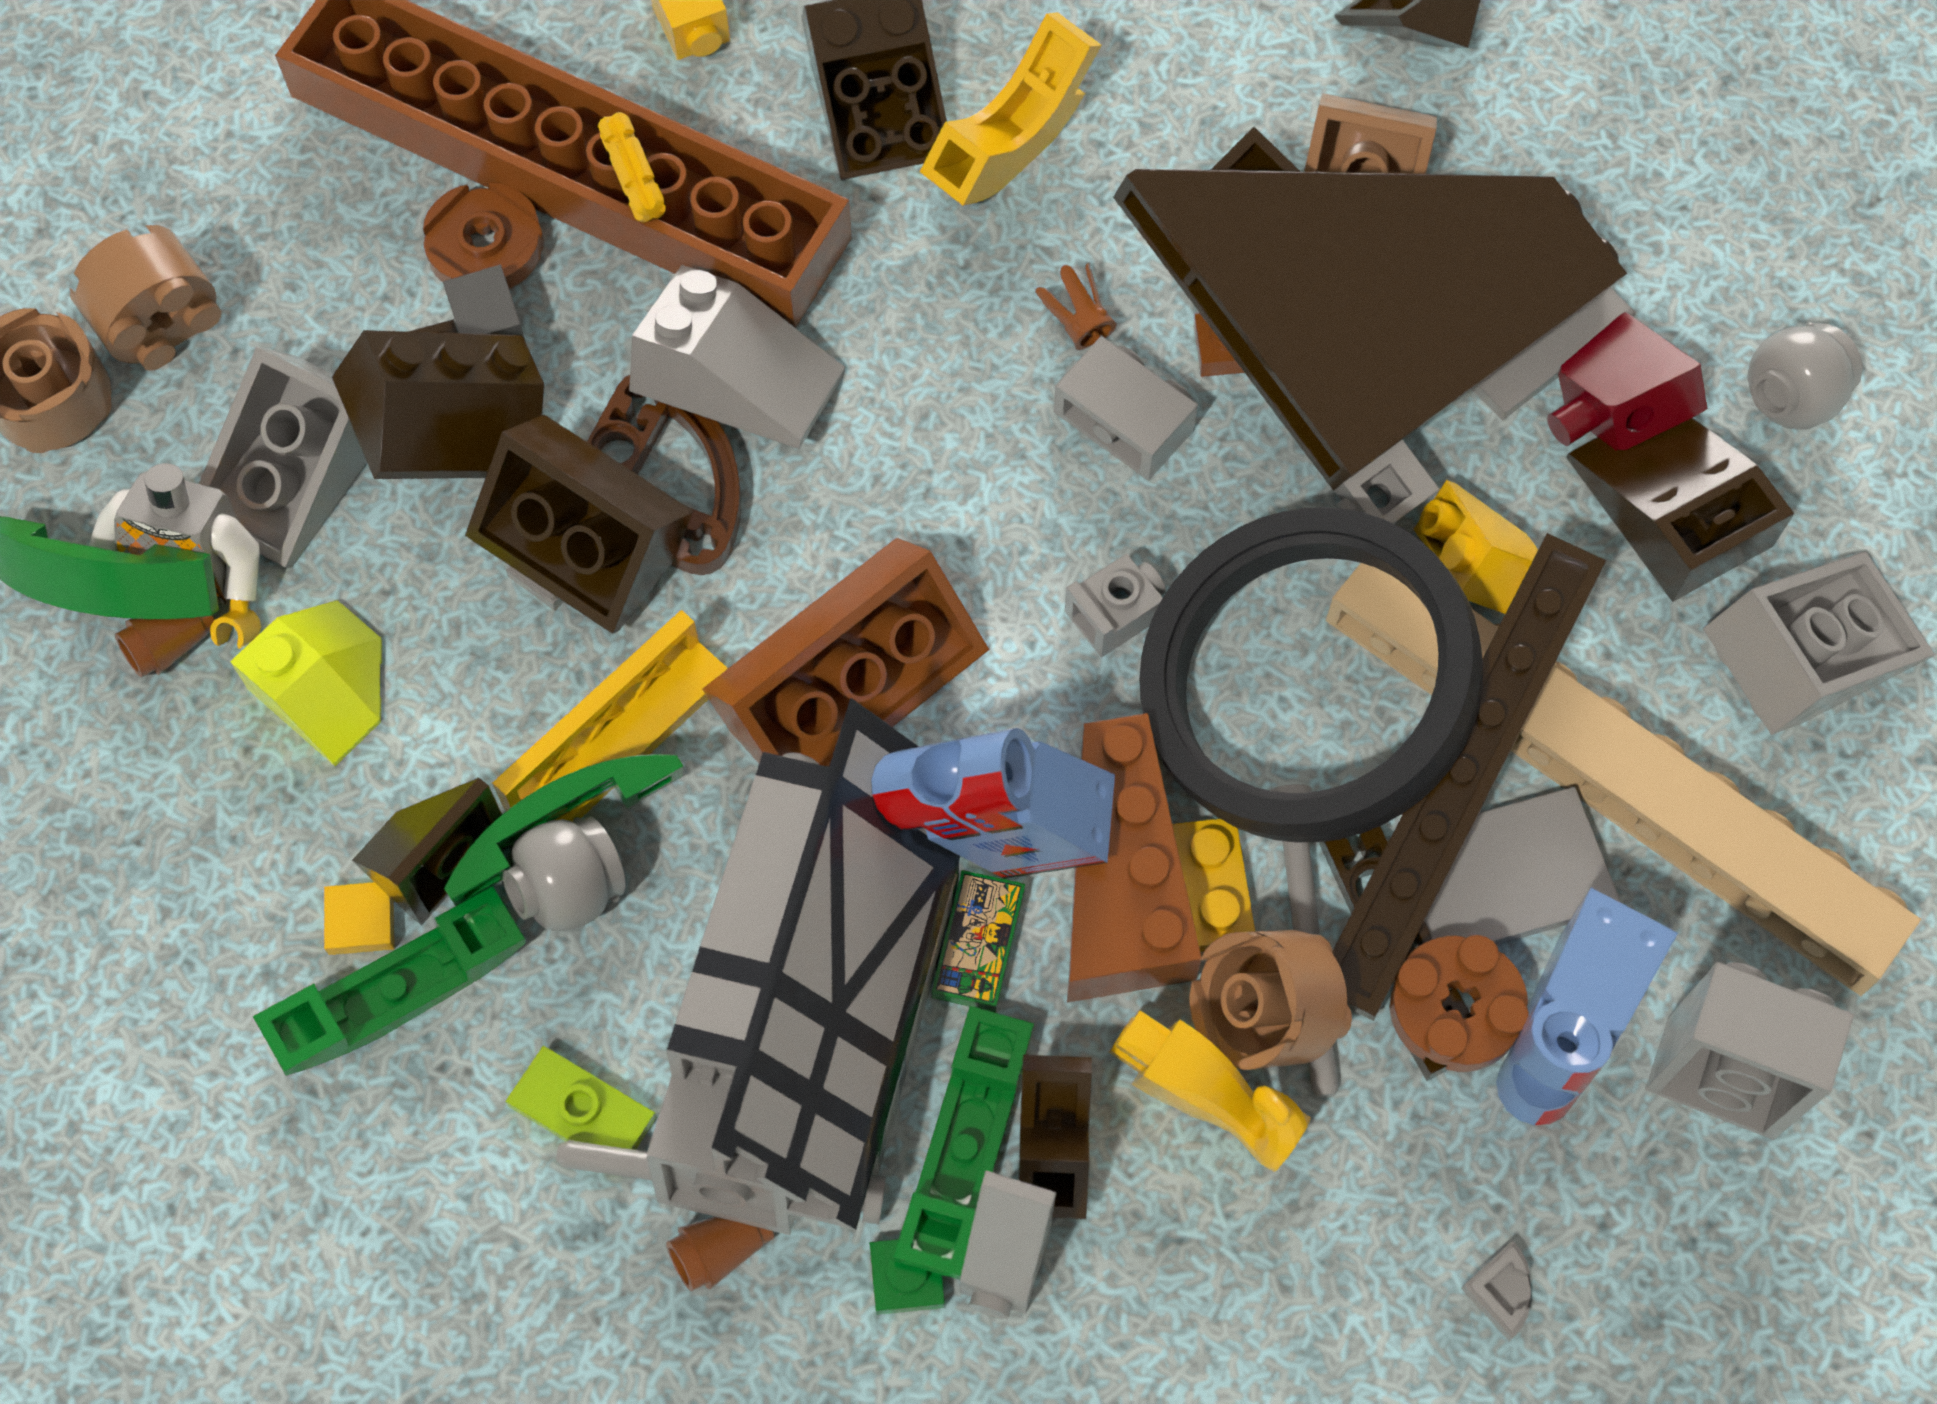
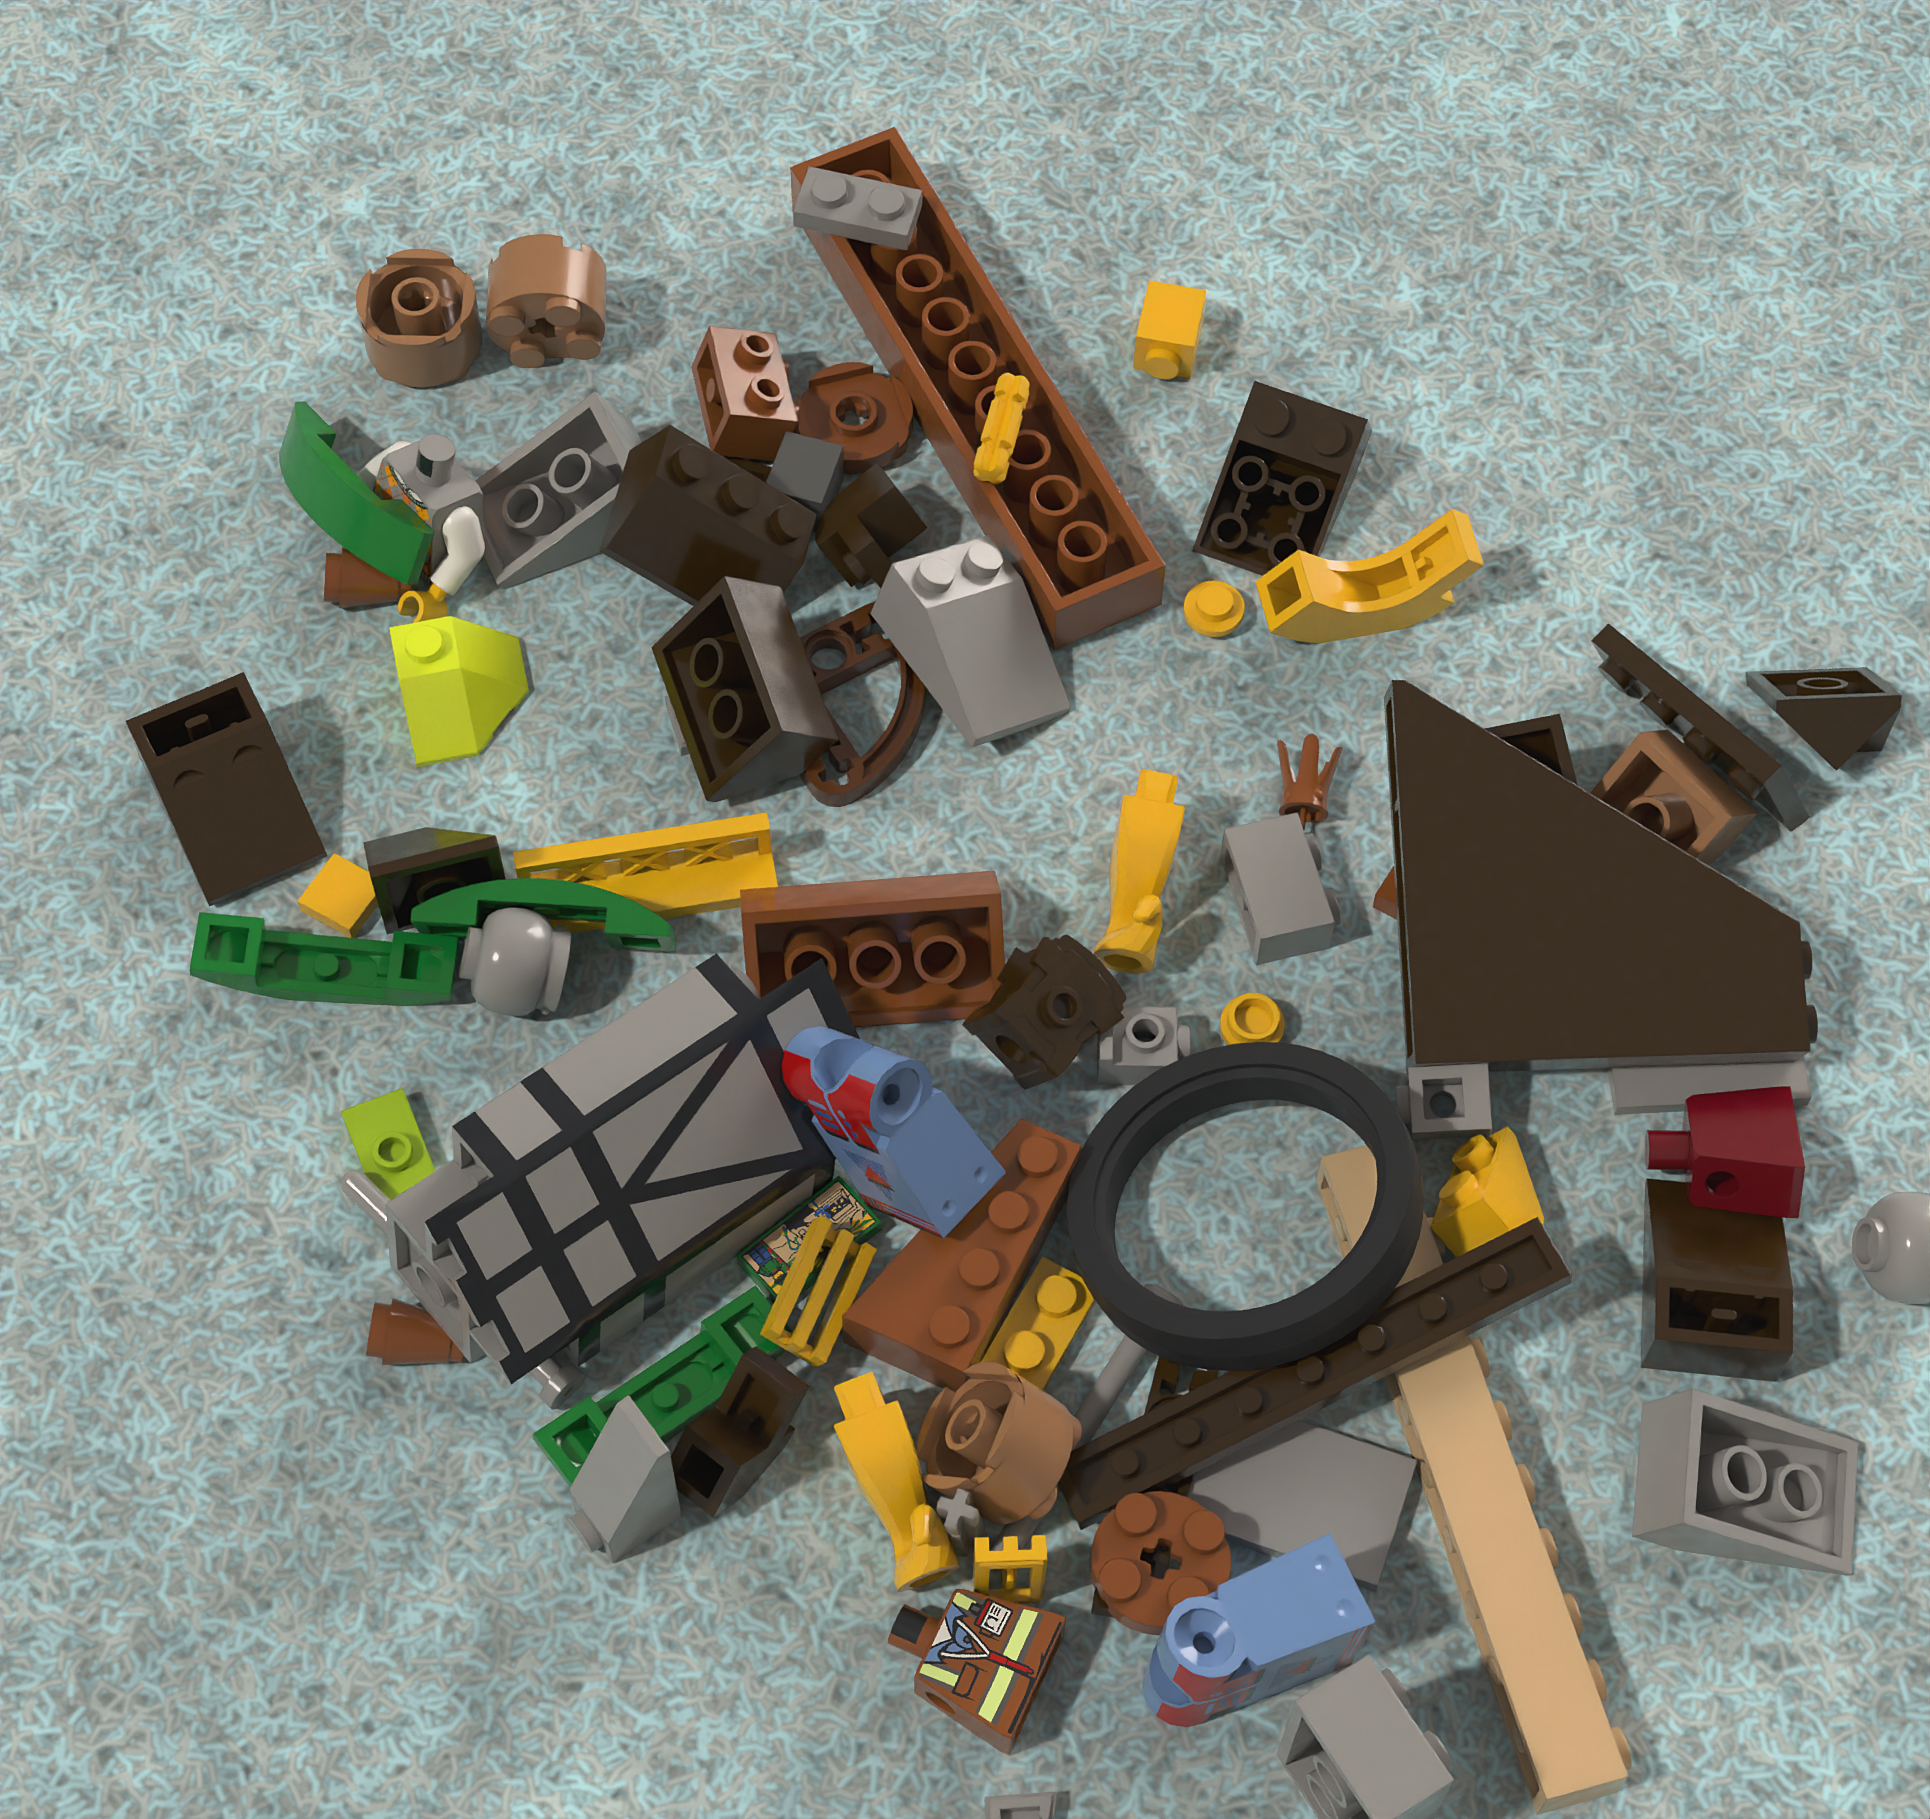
camera: 35 degrees right, 5 degrees down
(186, 894) = (226, 788): none -> dark brown slope
(364, 55) = (857, 208): none -> light grey plate
(378, 271) = (744, 393): none -> dark orange brick
(571, 319) = (867, 527): none -> dark brown brick
(897, 215) = (1213, 608): none -> yellow plate
(902, 1286) = (530, 1471): green plate -> none
(1007, 454) = (1138, 873): none -> yellow hips
(1031, 623) = (1047, 1009): none -> dark brown piece
(1036, 975) = (830, 1327): none -> yellow tile
(1185, 529) = (1252, 1019): none -> yellow plate
(1292, 1077) = (961, 1521): none -> light grey axle
(1355, 75) = (1703, 728): none -> dark brown wing
(1358, 1094) = (1008, 1561): none -> yellow tile
(1382, 1180) = (981, 1660): none -> torso

